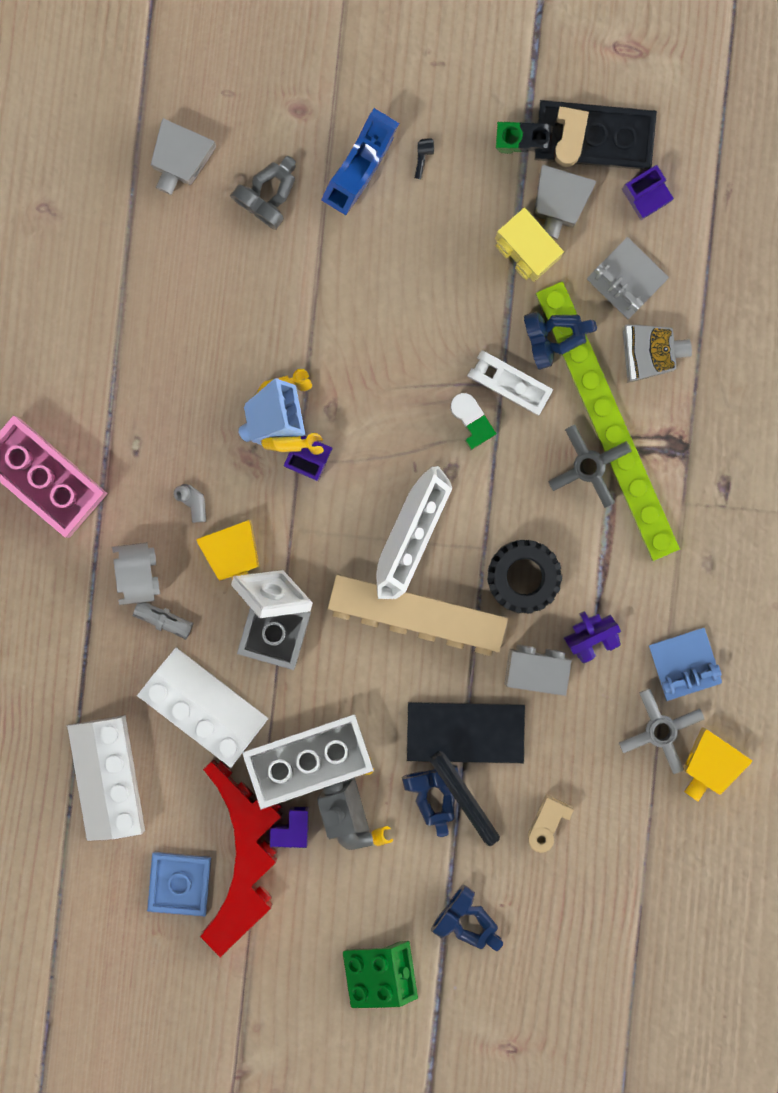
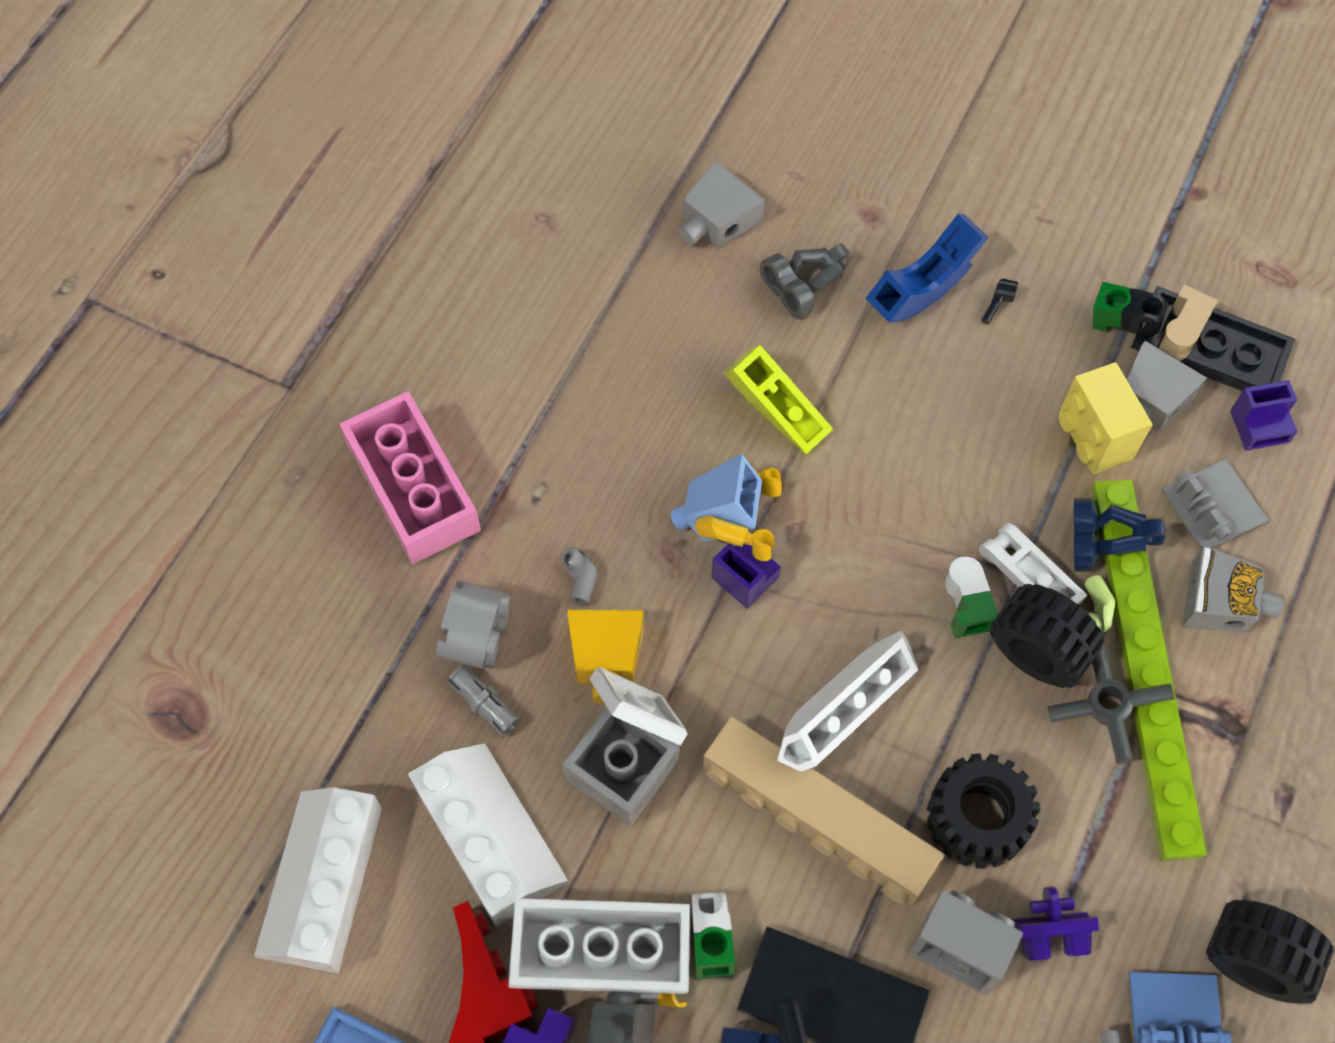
camera: 15 degrees right, 25 degrees down
(283, 310) = (777, 398): none -> neon yellow slope
(374, 720) = (712, 936): none -> leg
(532, 439) = (1047, 635): none -> black tyre
(567, 390) = (1103, 602): none -> yellowish green arm
(731, 608) = (1270, 951): none -> black tyre

